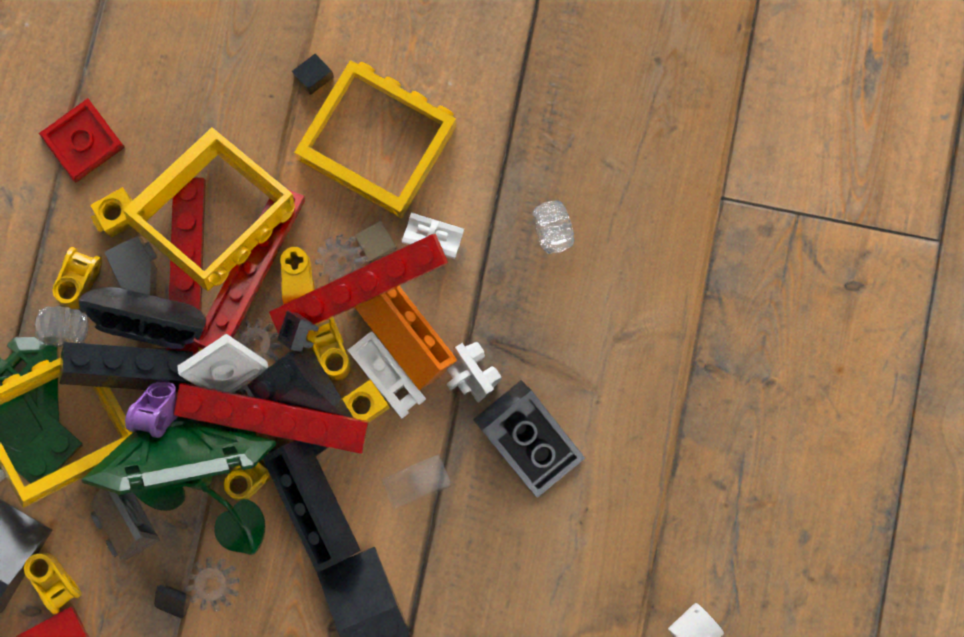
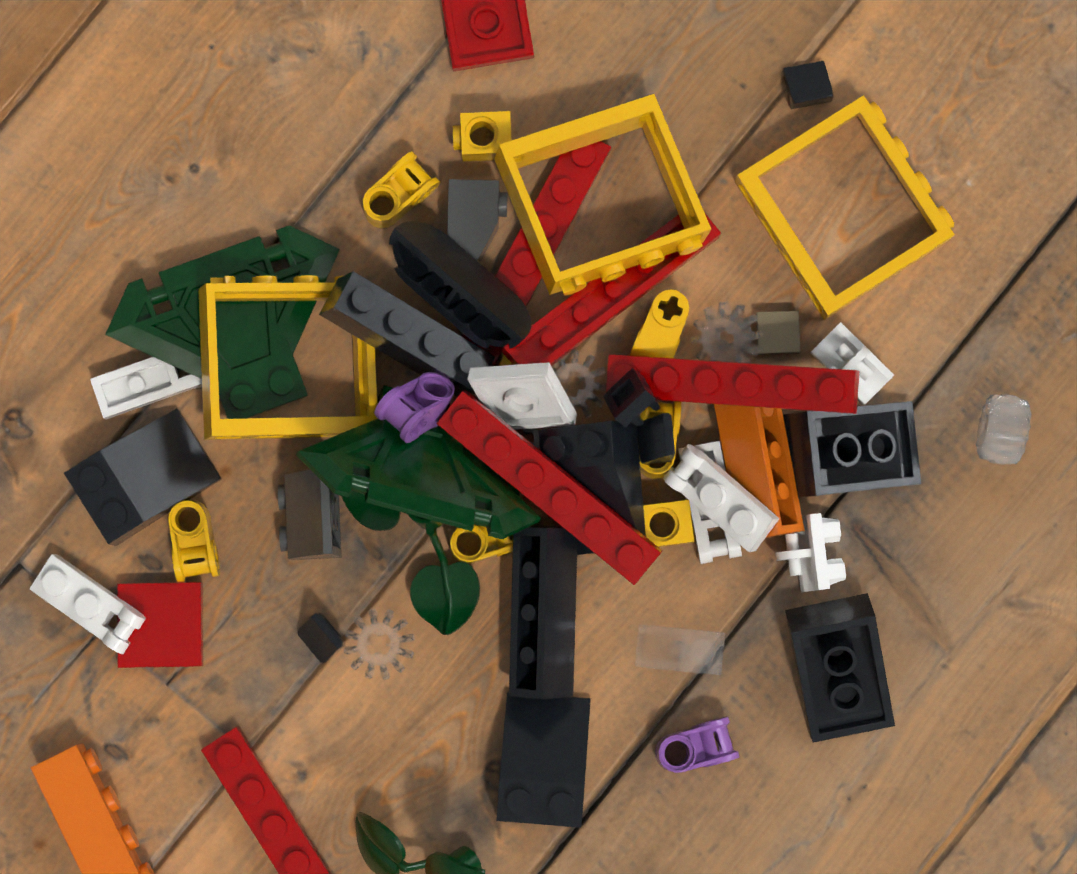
camera: 30 degrees right, 5 degrees up
(61, 325) = (353, 244): clear gear -> none
(327, 350) = (656, 439): none -> black slope
(391, 366) = (722, 499): none -> white plate
(462, 290) = (853, 450): none -> black slope
(463, 539) = (700, 746): none -> medium lavender piece

